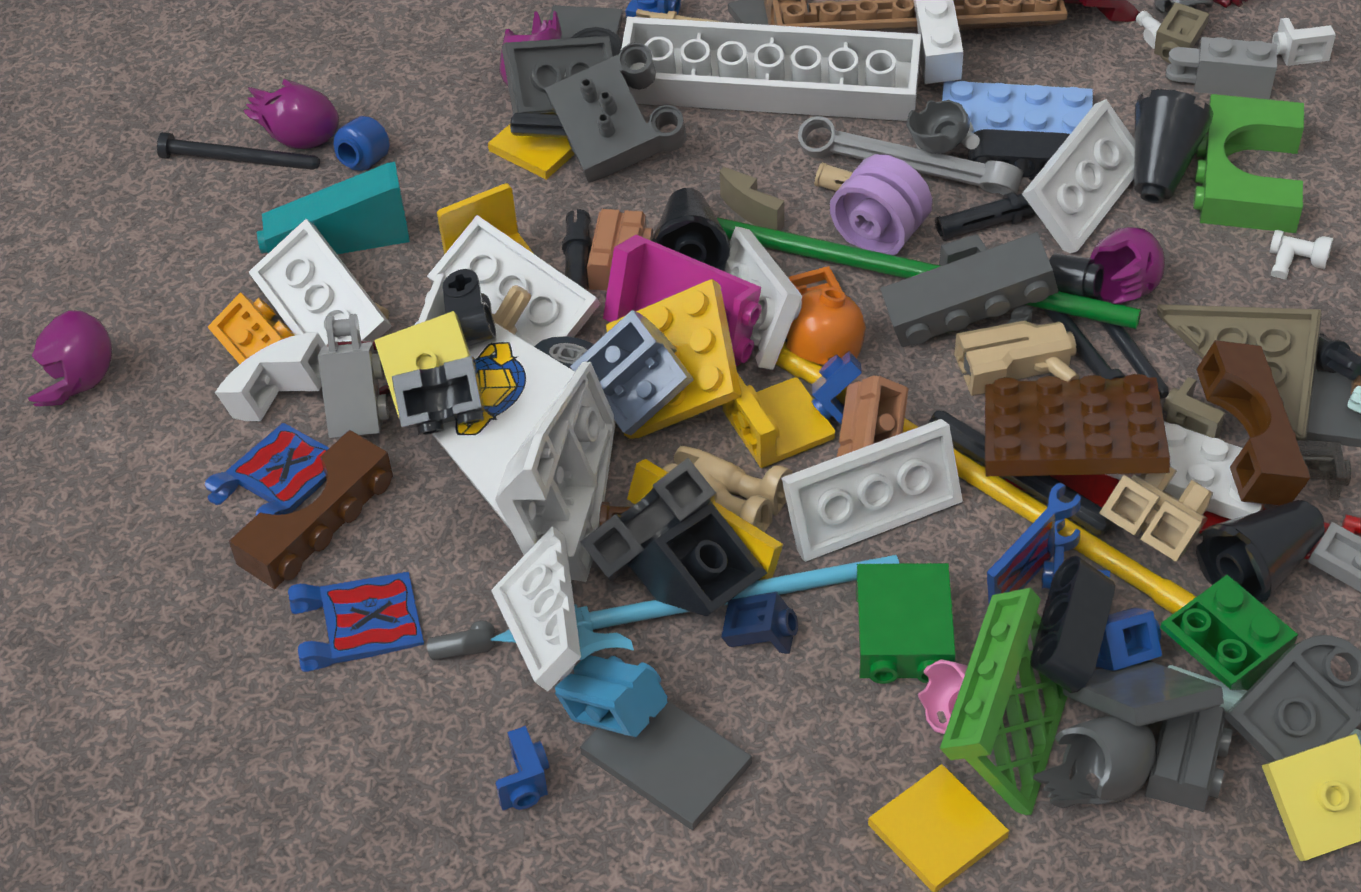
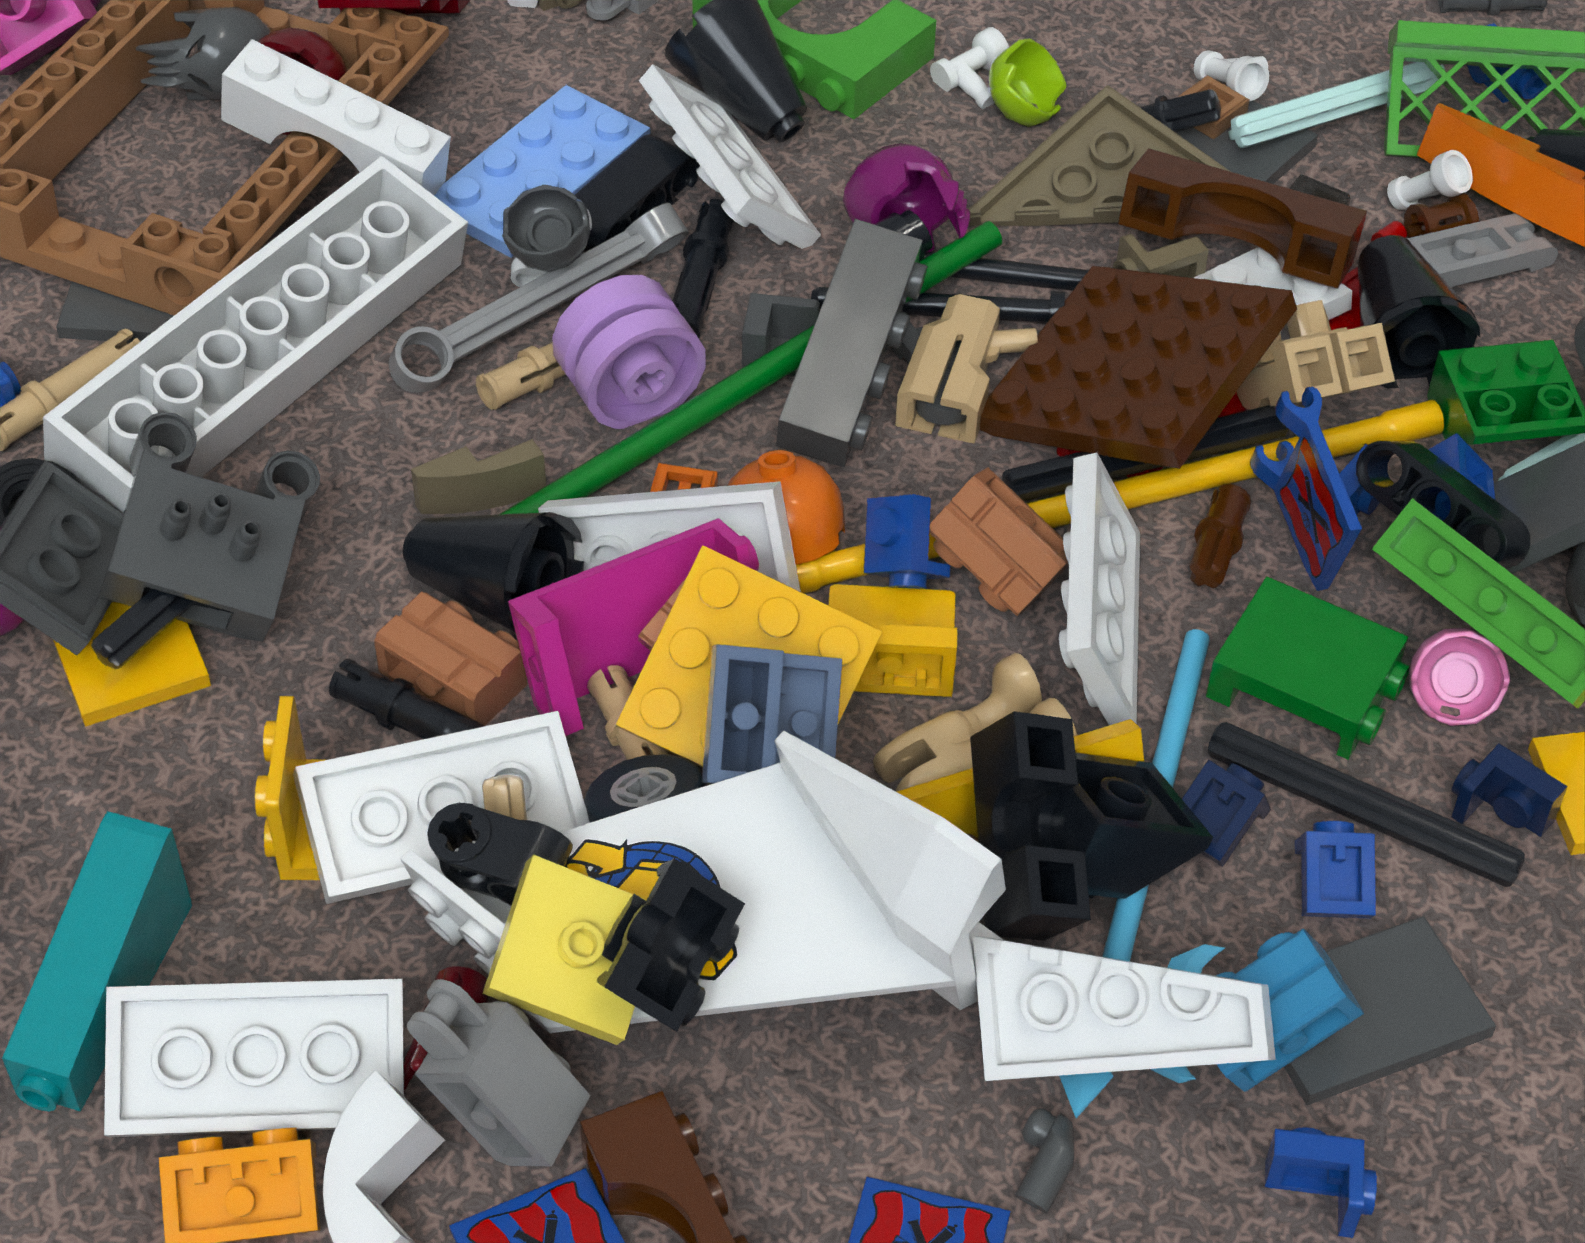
camera: 65 degrees left, 0 degrees up
(753, 696) = (1337, 871): none -> blue bracket
(823, 699) = (1367, 804): none -> black axle
(882, 757) = (1513, 786): none -> dark blue bracket
(981, 537) = (1219, 535): none -> reddish brown axle
(1298, 272) = (1025, 76): none -> lime hair

